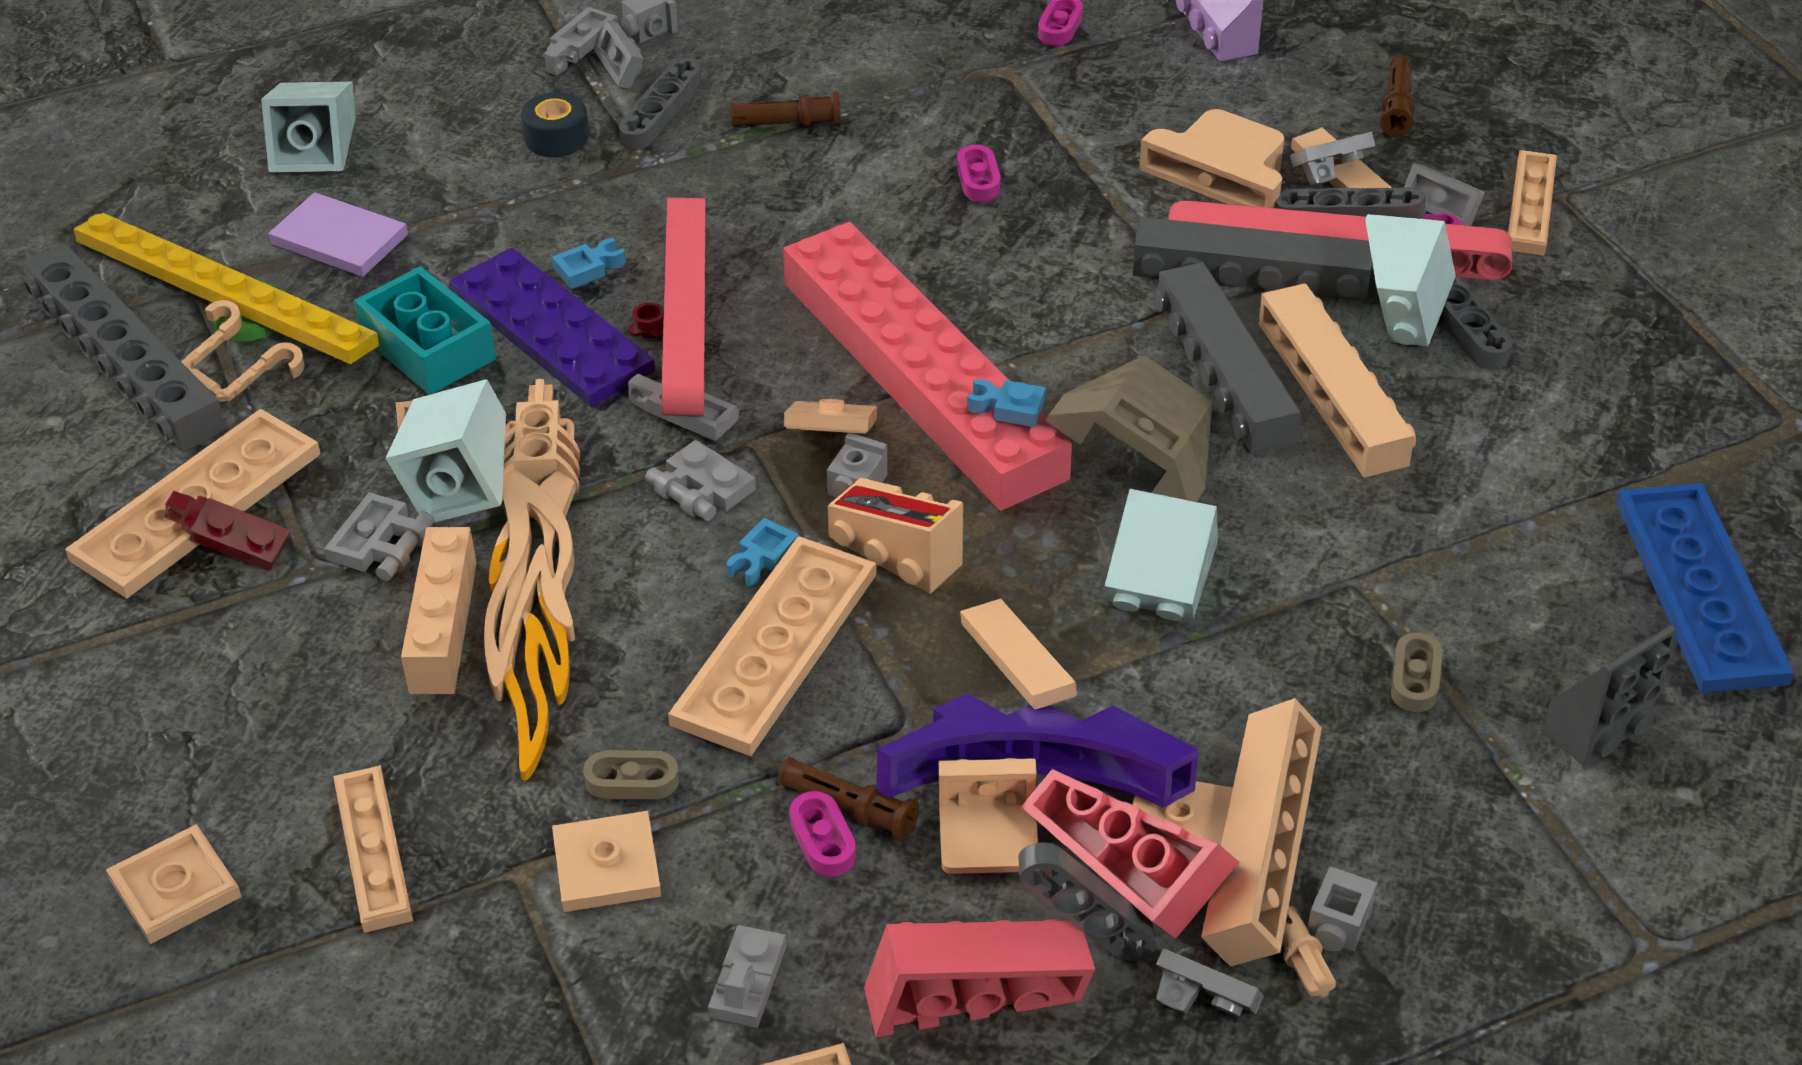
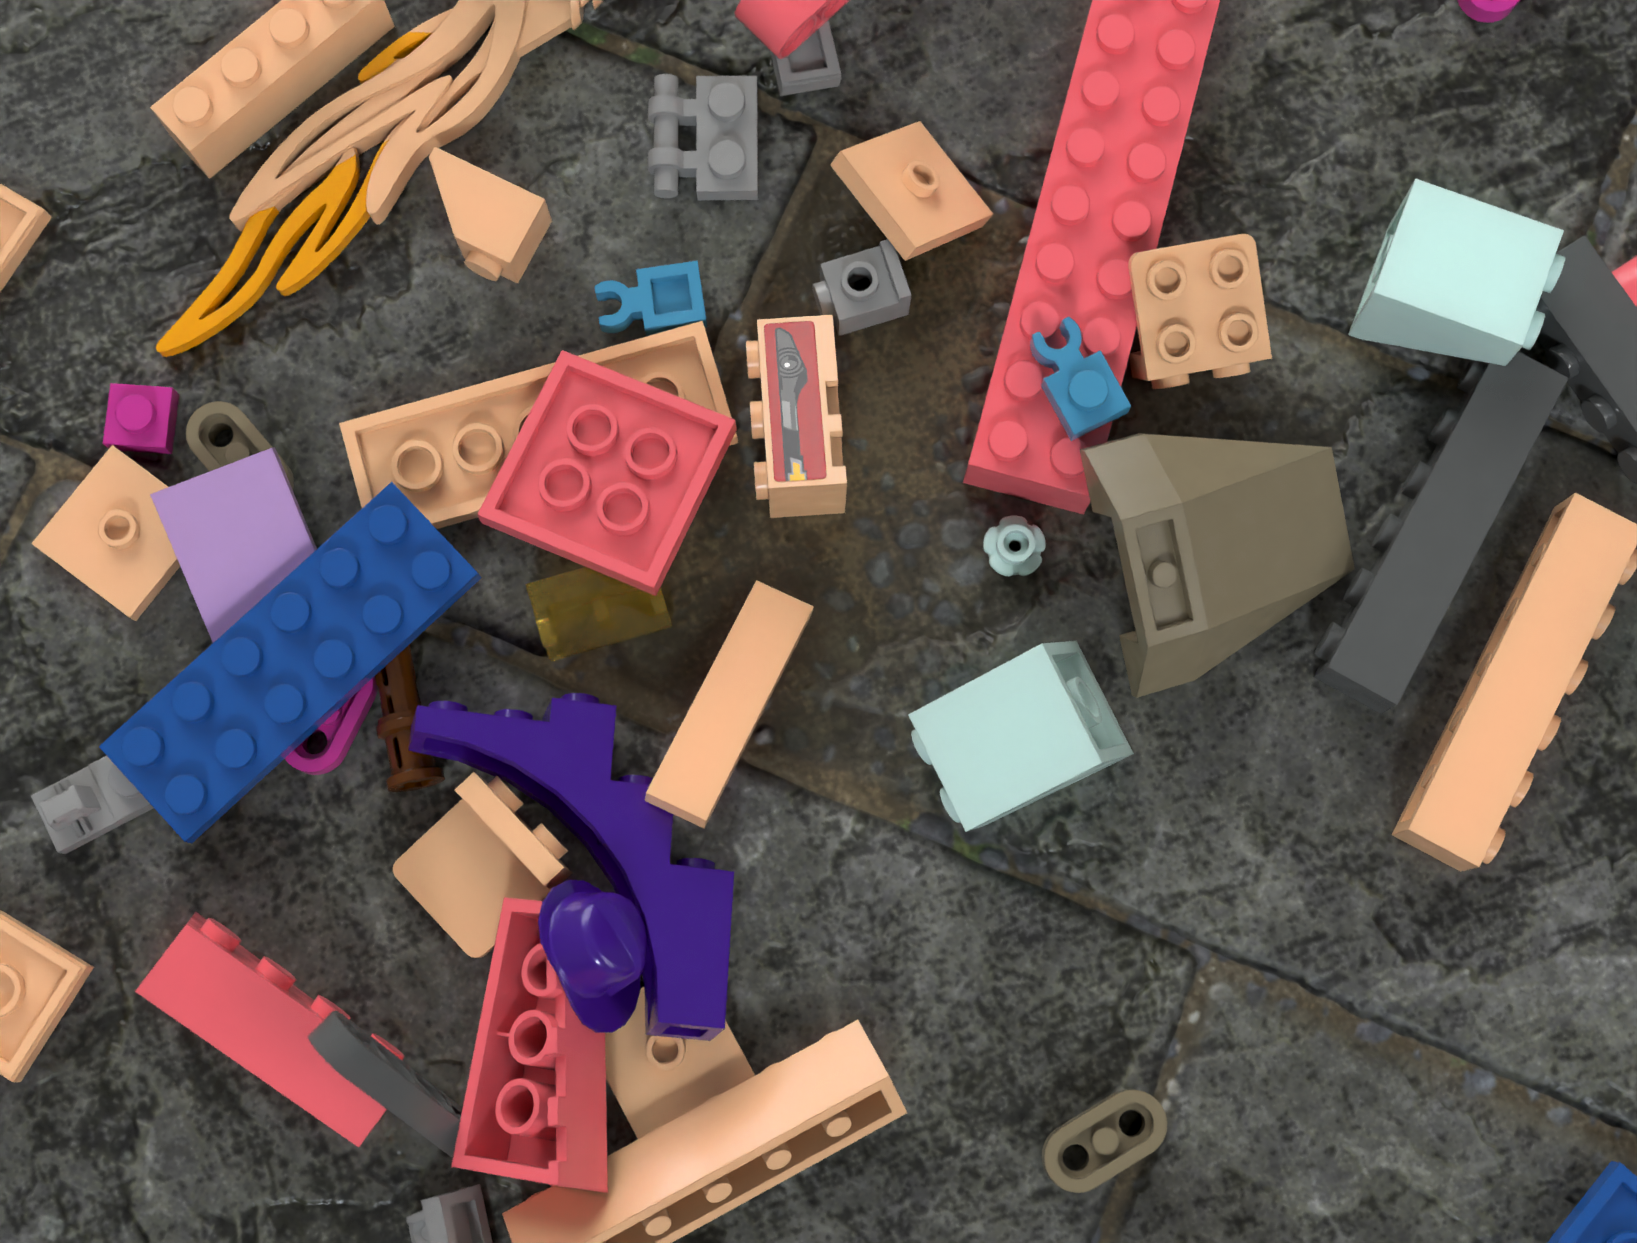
camera: 45 degrees right, 35 degrees up
(550, 806) = (141, 418): none -> dark pink plate
(630, 582) = (490, 217): none -> light nougat slope
(696, 802) = (235, 535): none -> lavender tile
(779, 820) = (289, 663): none -> blue plate
(839, 607) = (608, 472): none -> coral plate
(898, 679) = (592, 611): none -> clear yellow hinge
(1024, 346) = (1198, 310): none -> light nougat bracket
(1058, 508) = (1009, 562): none -> light aqua plate
(1097, 762) = (596, 950): none -> dark purple piece
(1109, 263) = (1459, 278): none -> light aqua slope

